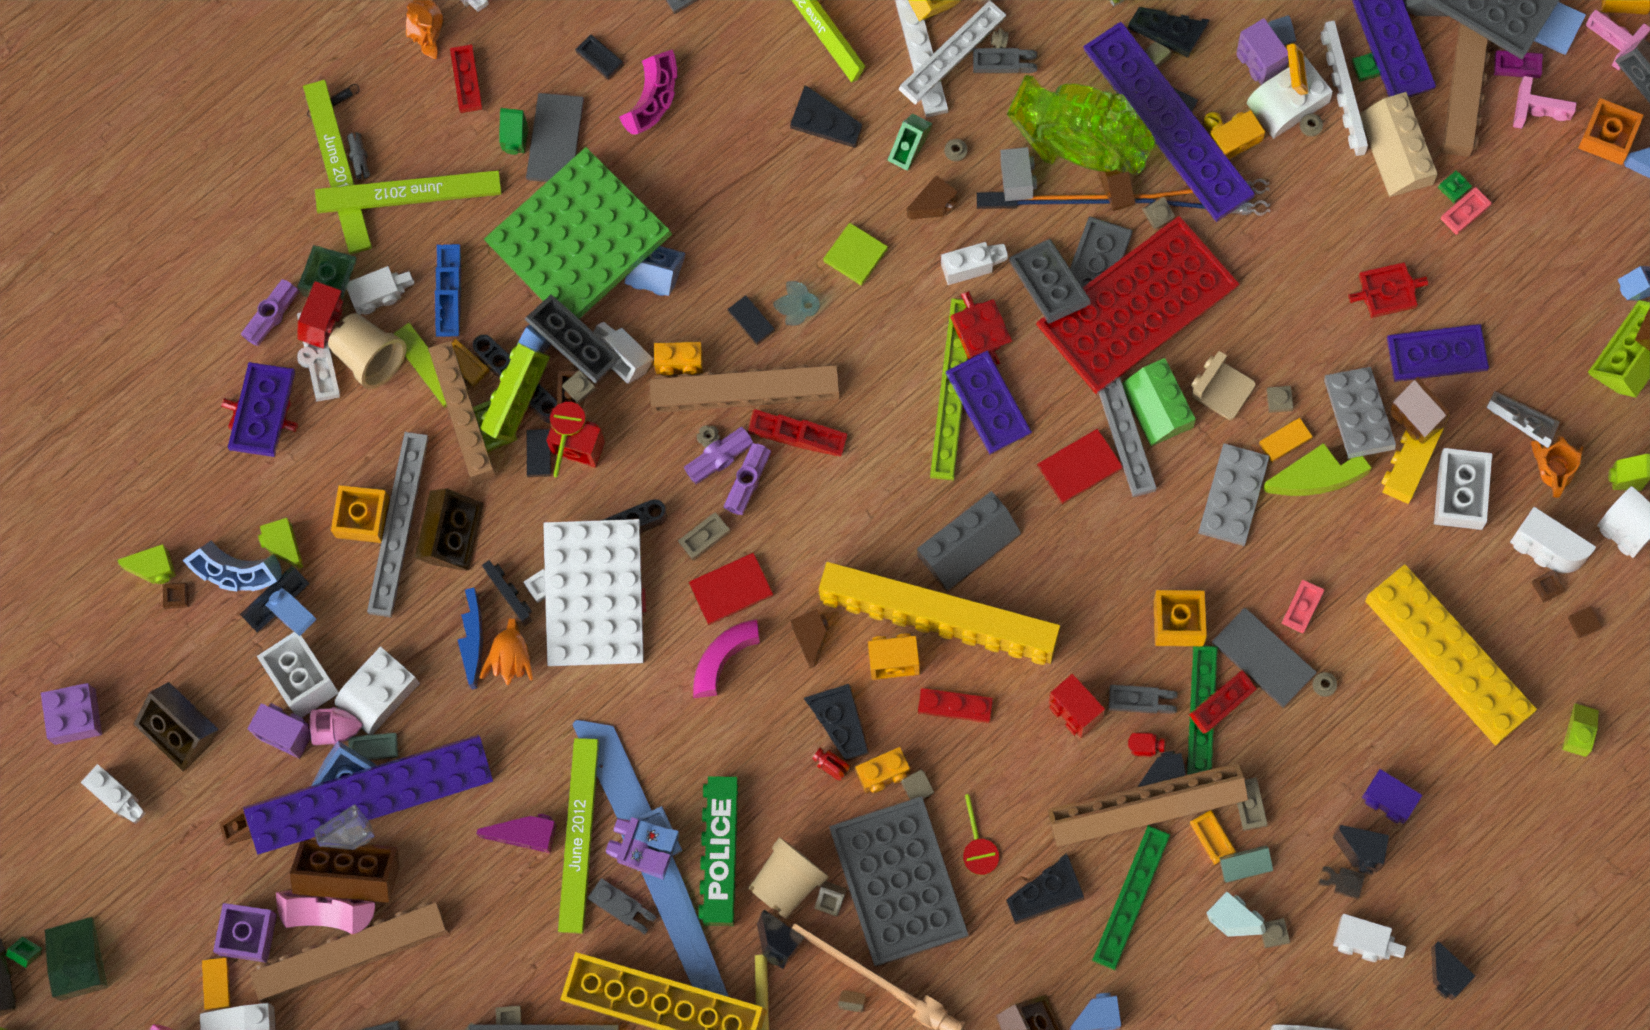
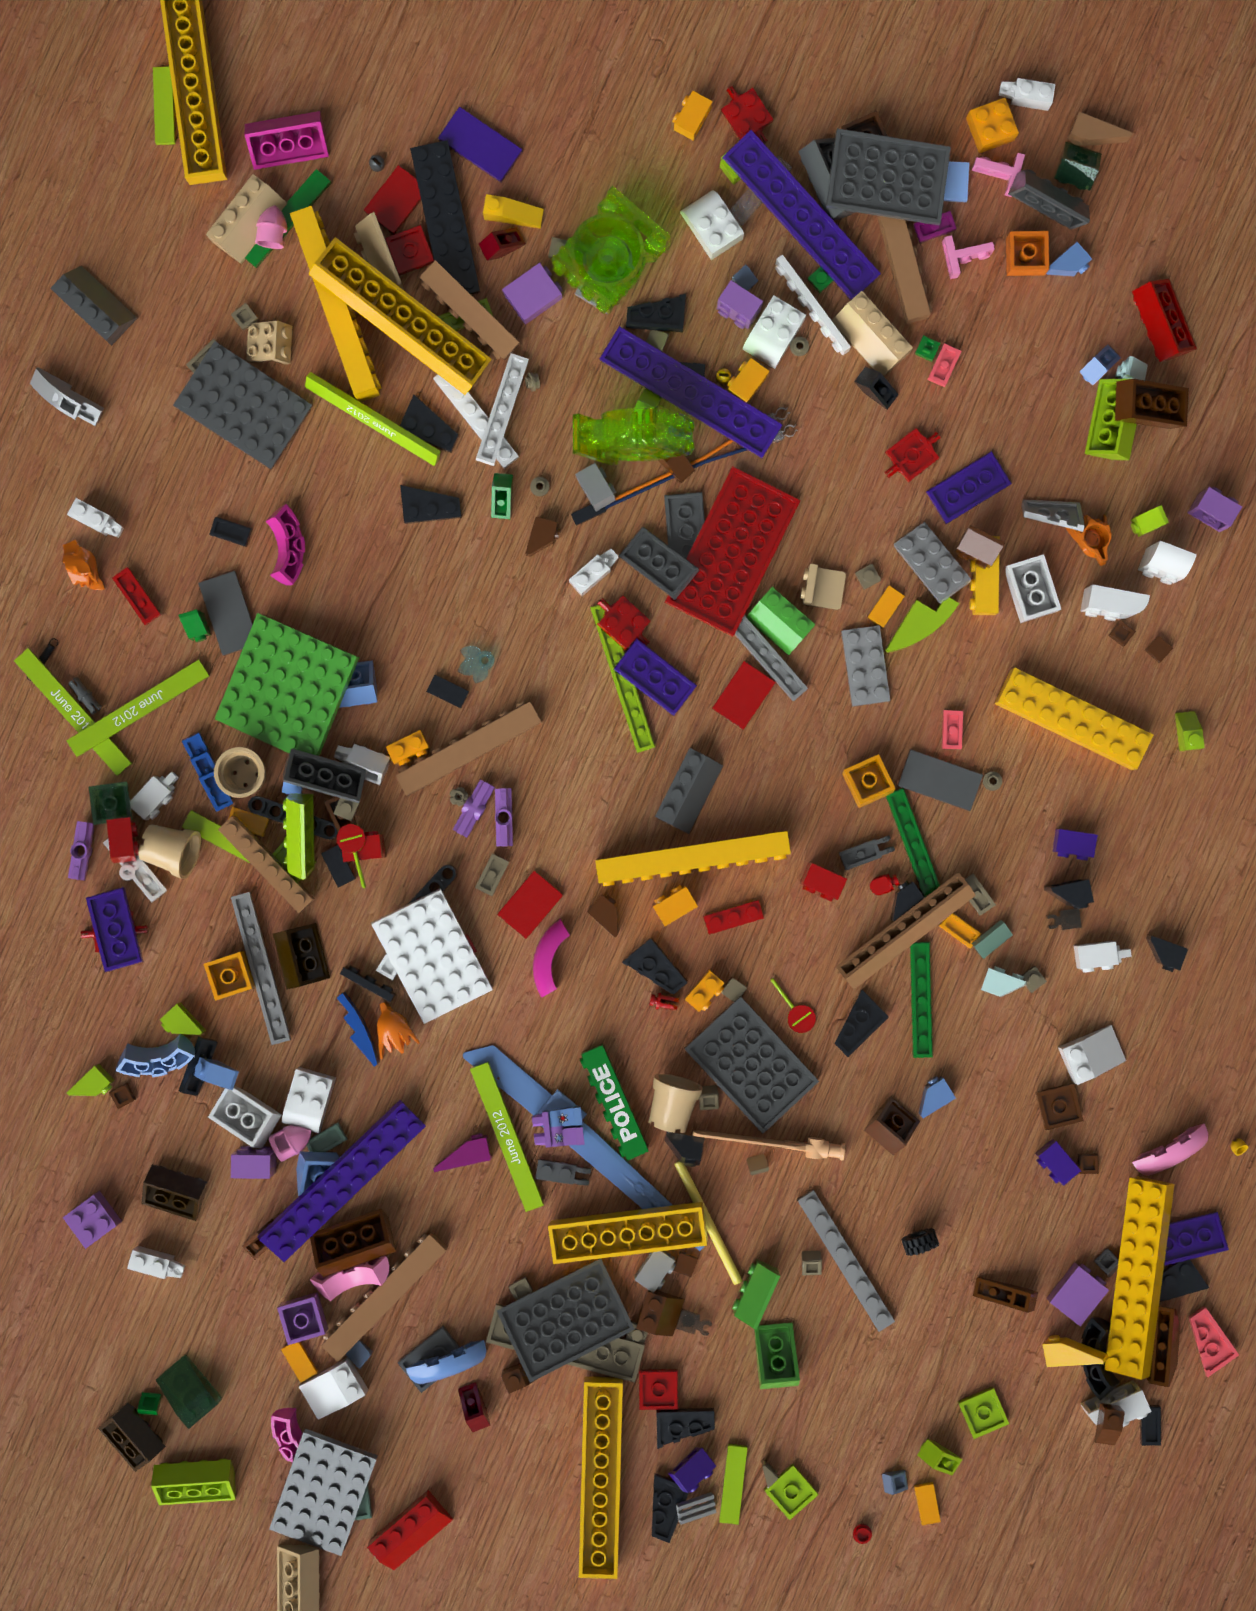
camera: 30 degrees left, 15 degrees up
(287, 1008) = (359, 1354): none -> sand blue slope
(345, 830) = (339, 1217): clear slope -> none
(481, 286) = (234, 760): none -> tan piece
(797, 433) = (523, 764): red slope -> none
(855, 254) = (501, 603): lime tile -> none
(865, 39) = (428, 426): none -> black wing
(1003, 60) = (542, 398): dark grey hinge -> none
(1158, 212) = (715, 469): dark tan plate -> none
(1222, 701) = (925, 829): red plate -> none
(1297, 69) = (774, 311): light orange tile -> none
(1378, 202) = (876, 387): none -> black slope

